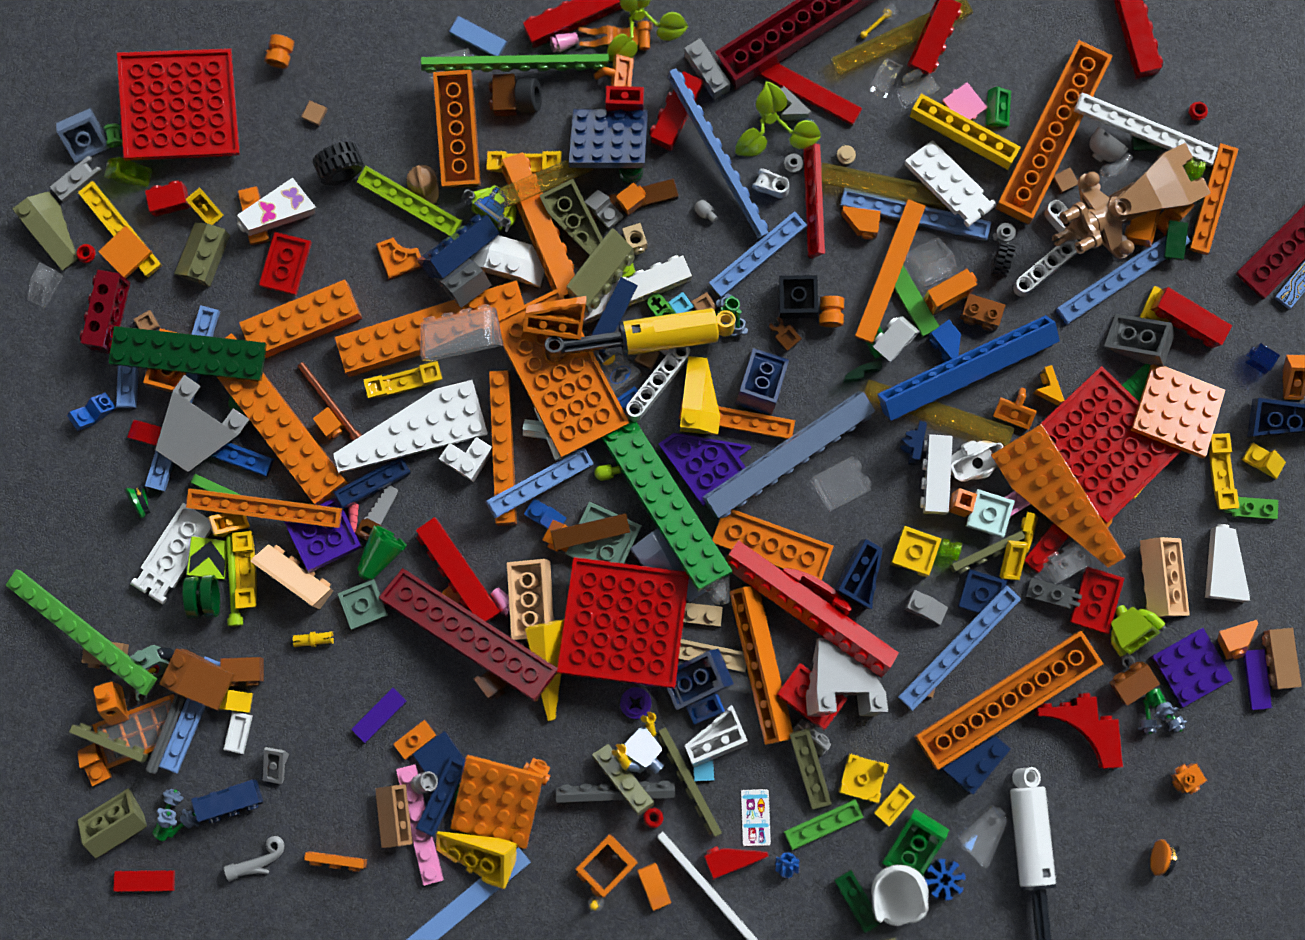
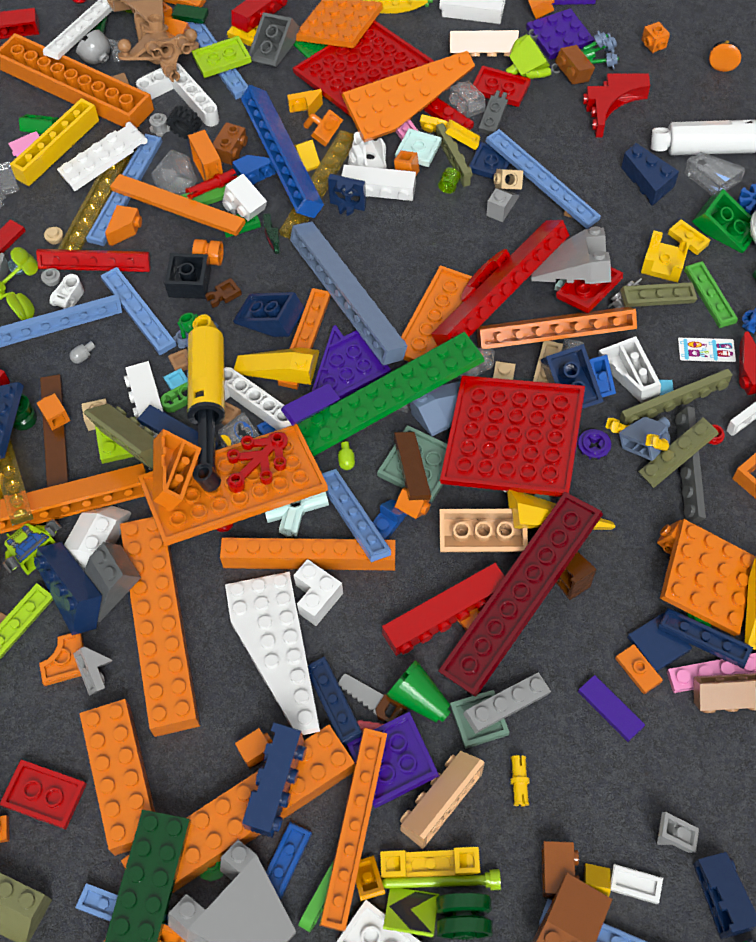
camera: 90 degrees left, 20 degrees down
(289, 441) = (275, 781): none -> dark blue wedge
(329, 401) = (274, 716): copper bar -> none
(375, 626) = (506, 702): none -> light grey plate
(389, 279) = (88, 664): none -> light grey slope
(403, 381) = (214, 658): yellow slope -> none
(424, 782) = (691, 654): light grey wheel -> none
(460, 333) = (172, 573): clear windscreen -> none
(501, 600) = (482, 561): bright pink cone -> none
(571, 213) = (53, 465): olive wedge -> none
(582, 393) = (257, 458): none -> red plant
(603, 209) = (54, 442): light grey slope -> none
(649, 432) = (310, 404): none -> dark purple tile
(841, 484) = (381, 256): clear panel -> none
(860, 574) = (468, 244): dark blue wedge -> none
(916, 301) = (217, 181): none -> red pin
(916, 551) = (450, 200): yellow panel -> none
(952, 611) = (515, 182): none -> tan brick
(976, 394) = (308, 154): none -> yellow slope
(1008, 700) = (592, 148): orange brick -> none
(1107, 285) = (221, 56): none -> lime plate

